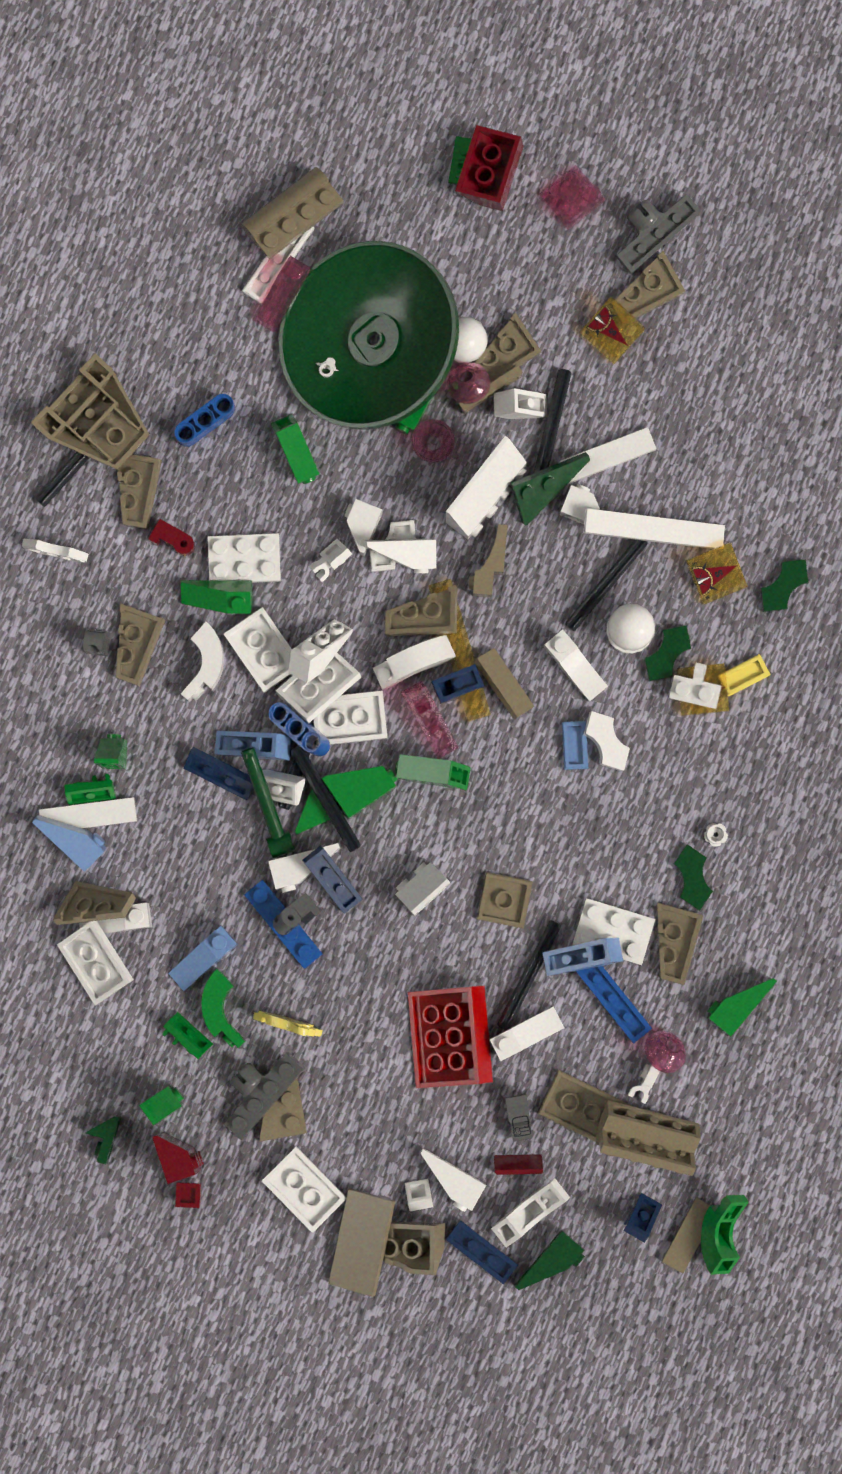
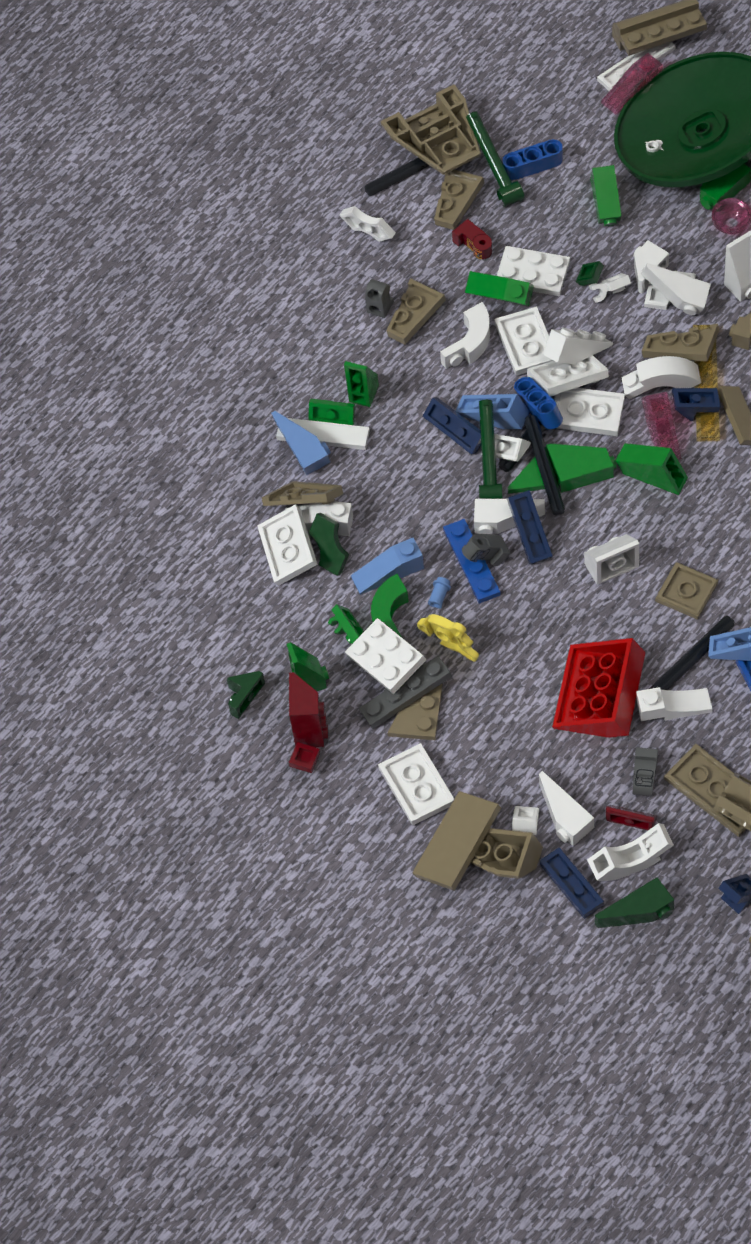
camera: 20 degrees right, 25 degrees down
(132, 944) = (332, 554): none -> dark green tile
(191, 466) = (508, 191): none -> dark green piece
(234, 1069) = (385, 656): none -> white plate
(262, 970) = (439, 592): none -> medium blue pin
(305, 549) = (589, 273): none -> dark green tile

